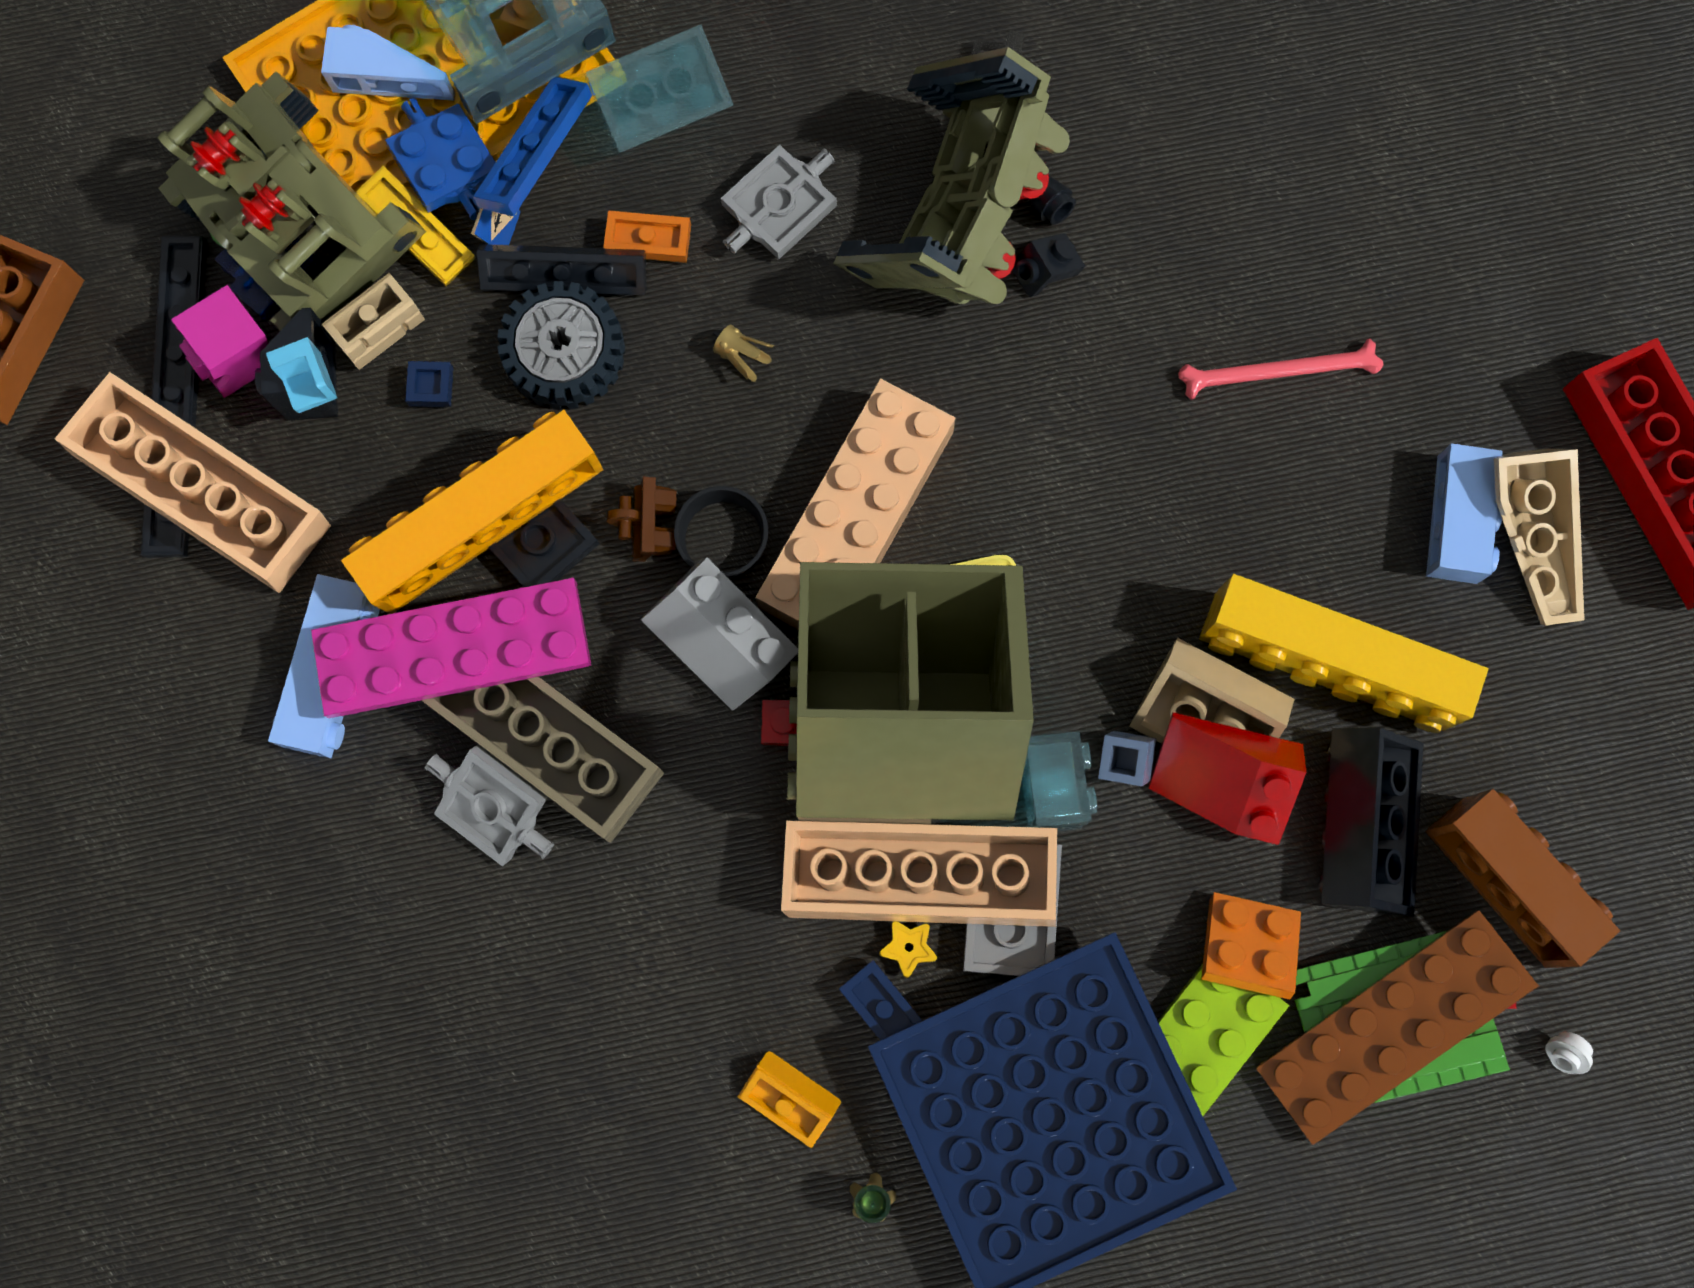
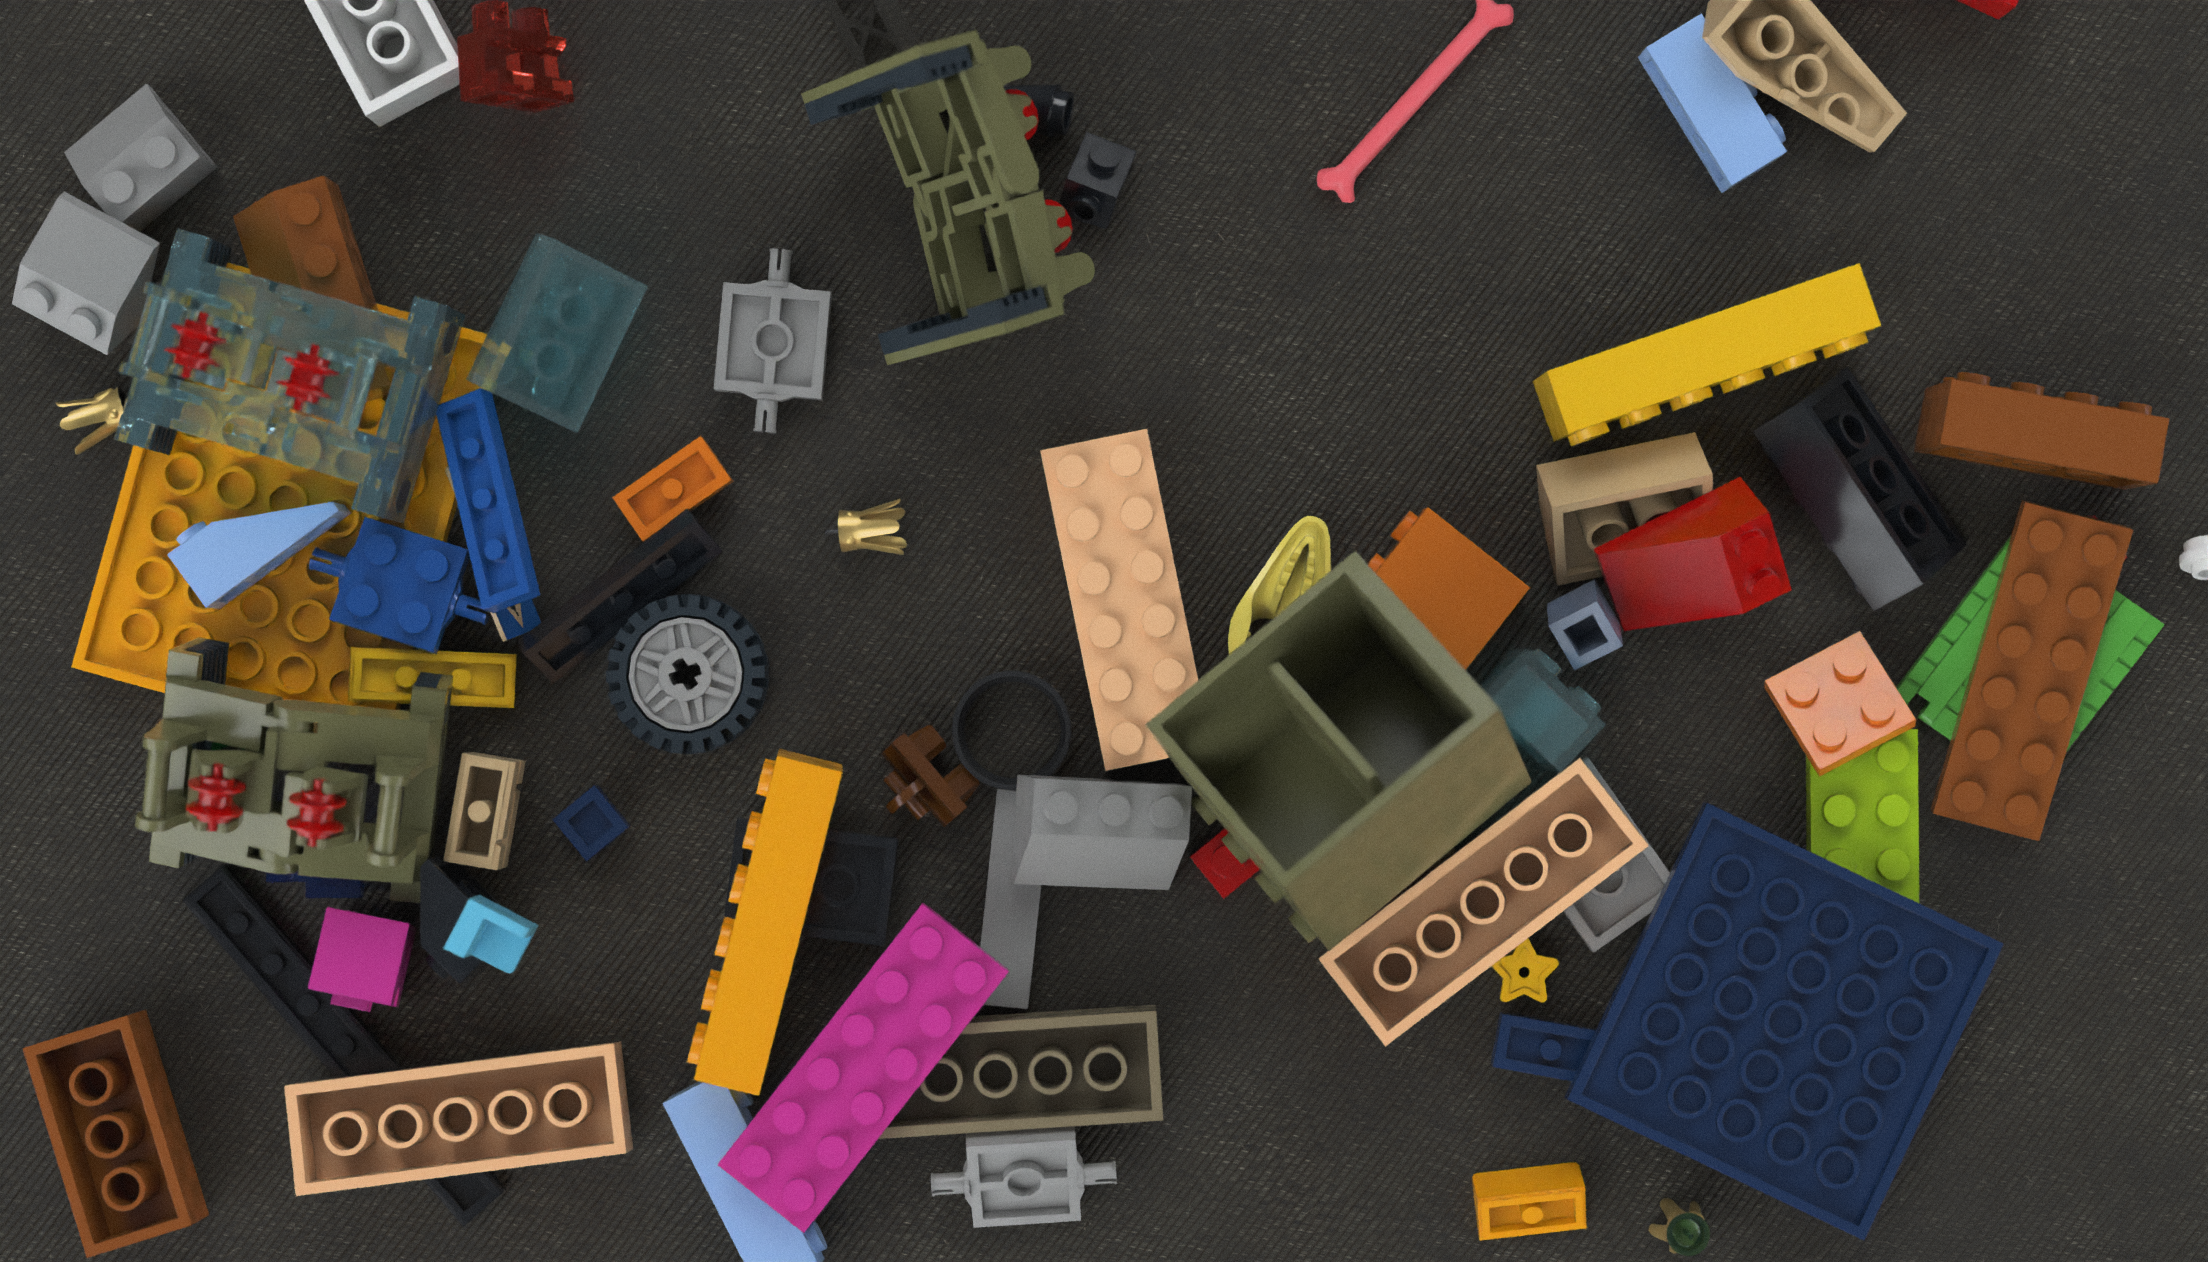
camera: 40 degrees left, 10 degrees up
(618, 648) = (1009, 912): none -> light grey tile
(1065, 665) = (1448, 583): none -> orange brick

